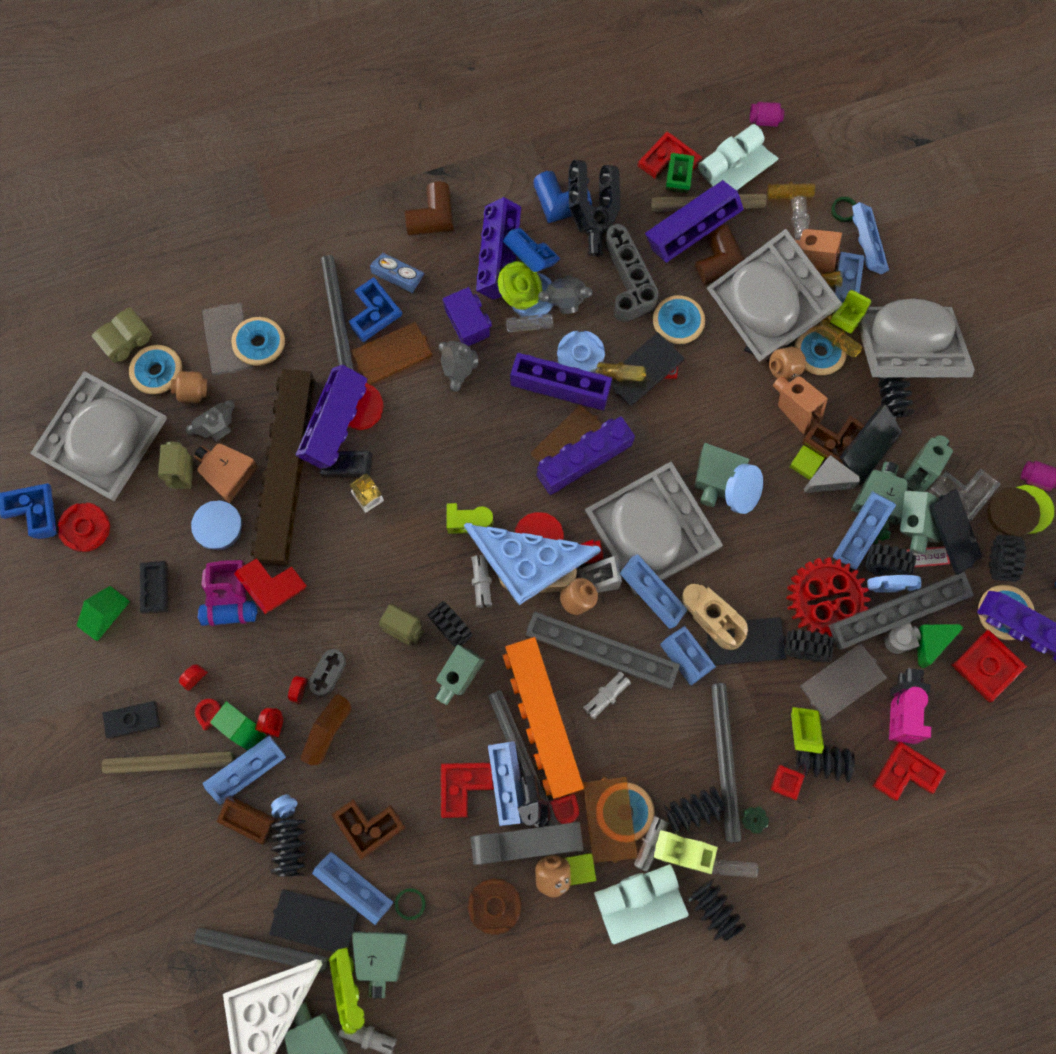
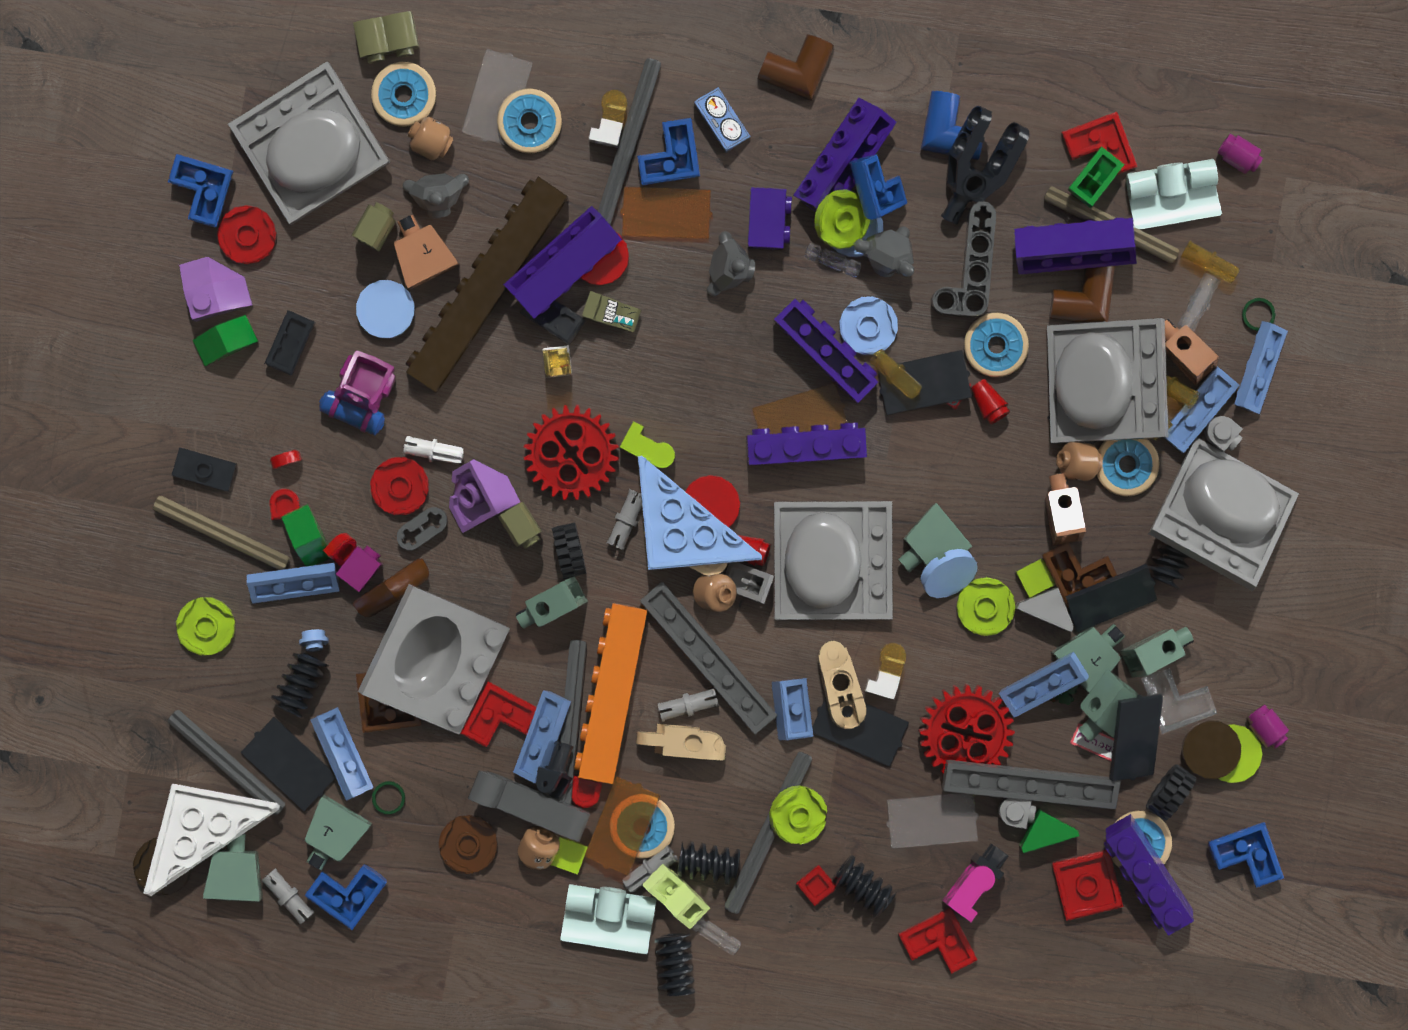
camera: 30 degrees right, 15 degrees up
(75, 580) = (212, 289): none -> medium lavender slope
(190, 845) = (205, 626): none -> lime tile
(246, 820) = (270, 632): reddish brown tile -> none
(269, 591) = (403, 414): red tile -> none
(292, 728) = (360, 567): none -> magenta brick
(293, 650) = (399, 486): none -> red tile
(297, 689) = (384, 530): red tile -> none
(305, 608) = (433, 450): none -> white axle
(316, 303) = (614, 111): none -> leg
(346, 992) = (288, 845): lime hinge -> none
(357, 621) = (479, 494): none -> medium lavender slope
(386, 767) = (433, 659): none -> light grey piece
(388, 439) = (611, 312): none -> olive leg
(421, 1014) = (347, 903): none -> blue brick
(422, 534) = (549, 468): none -> red gear
(620, 725) = (684, 742): none -> tan piece
(653, 591) = (792, 628): medium blue plate -> none
(699, 358) = (989, 401): none -> red cone
(741, 733) = (798, 815): none -> lime tile
(744, 586) = (890, 670): none -> leg
(755, 827) = (763, 894): clear green plate -> none
(784, 502) = (985, 606): none -> lime tile
(807, 730) = (863, 847): lime tile -> none
(809, 646) = (915, 769): black tyre -> none
(839, 338) = (1150, 466): clear yellow axle -> none
(851, 312) = (1178, 446): lime bracket -> none
(875, 291) = (1223, 433): none -> light grey plate
(890, 561) = (1050, 731): black tyre -> none
(894, 583) = (1039, 755): light blue tile -> none

